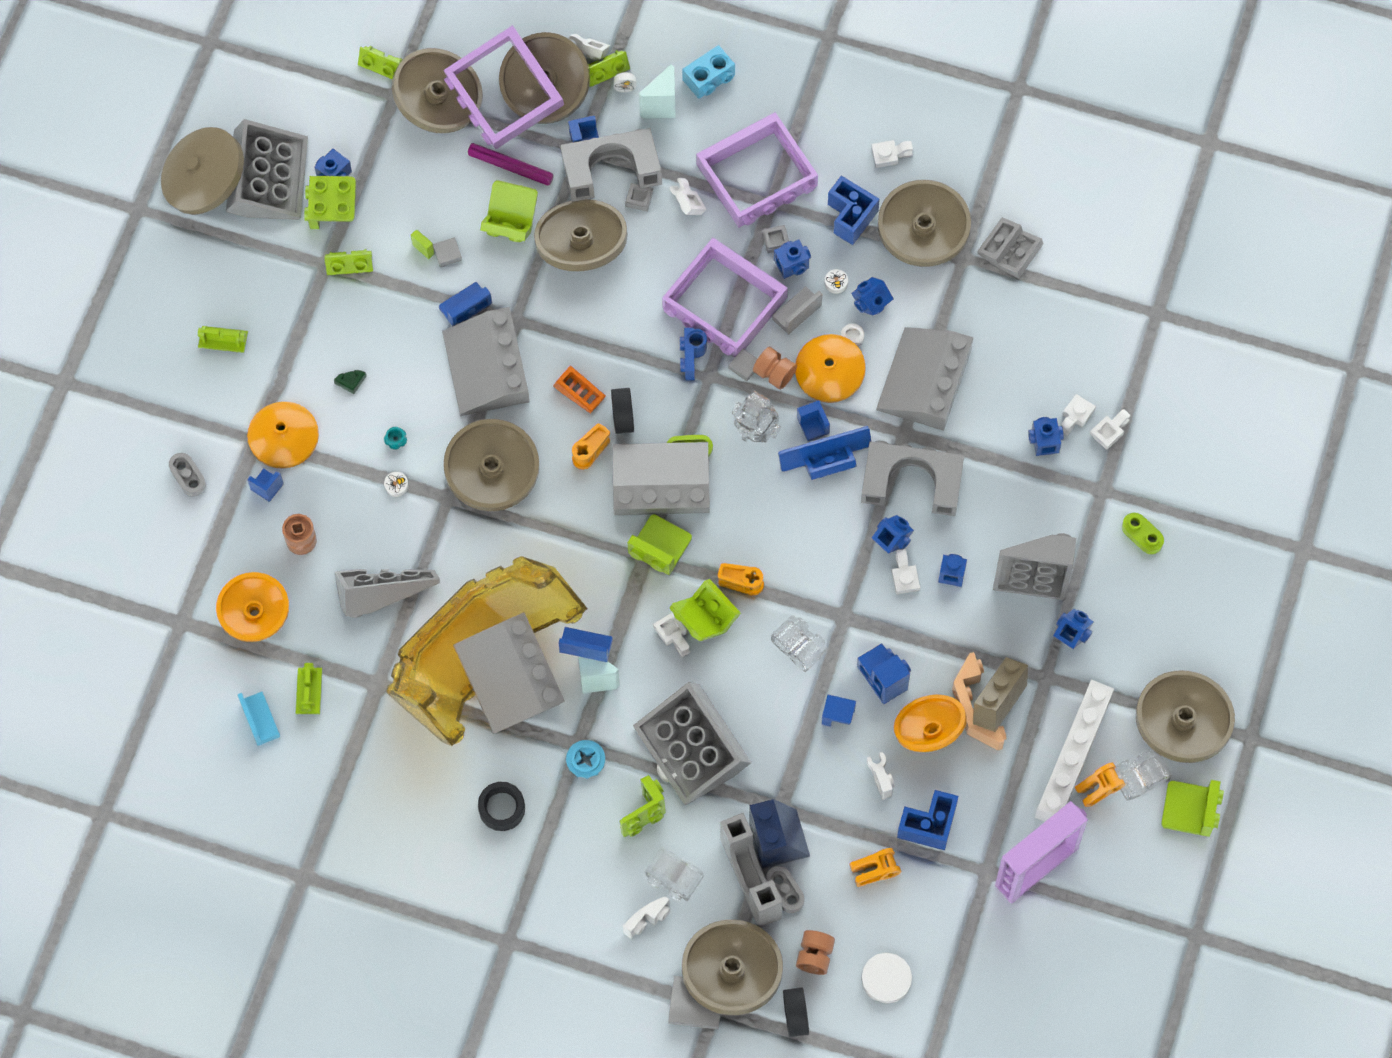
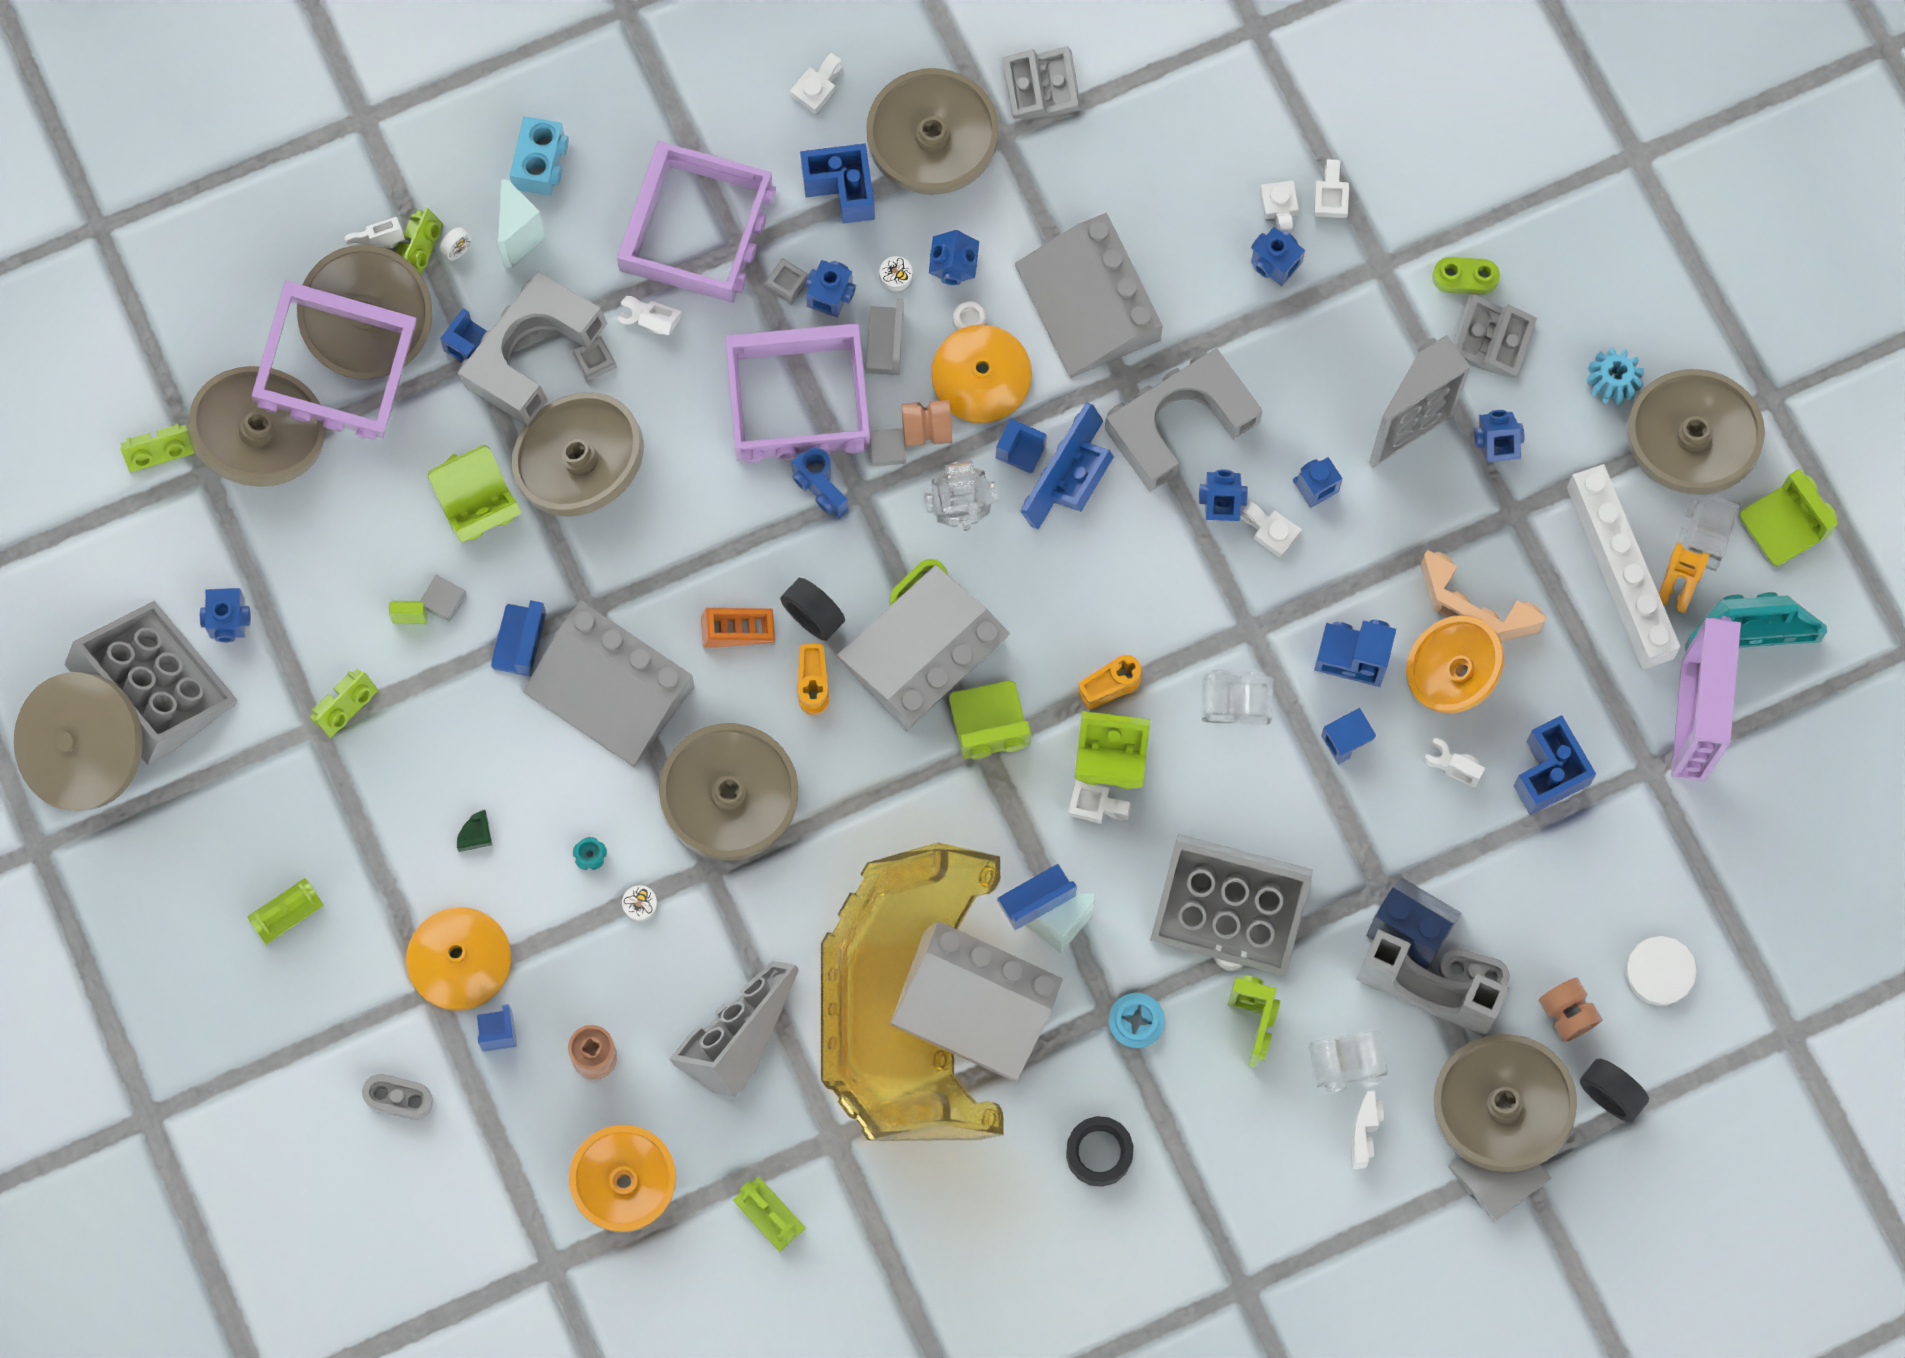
camera: 45 degrees left, 5 degrees up
(259, 718) = (745, 1292): medium azure panel -> none
(330, 199) = (258, 651): lime bracket -> none
(510, 164) = (416, 440): magenta axle -> none
(875, 860) = (1545, 853): light orange piece -> none
(1000, 694) = (1499, 570): dark tan brick -> none
(1120, 845) = (1768, 620): none -> teal wedge
(1125, 576) = (1494, 336): none -> light grey slope
(1165, 645) = (1611, 387): none -> medium azure gear

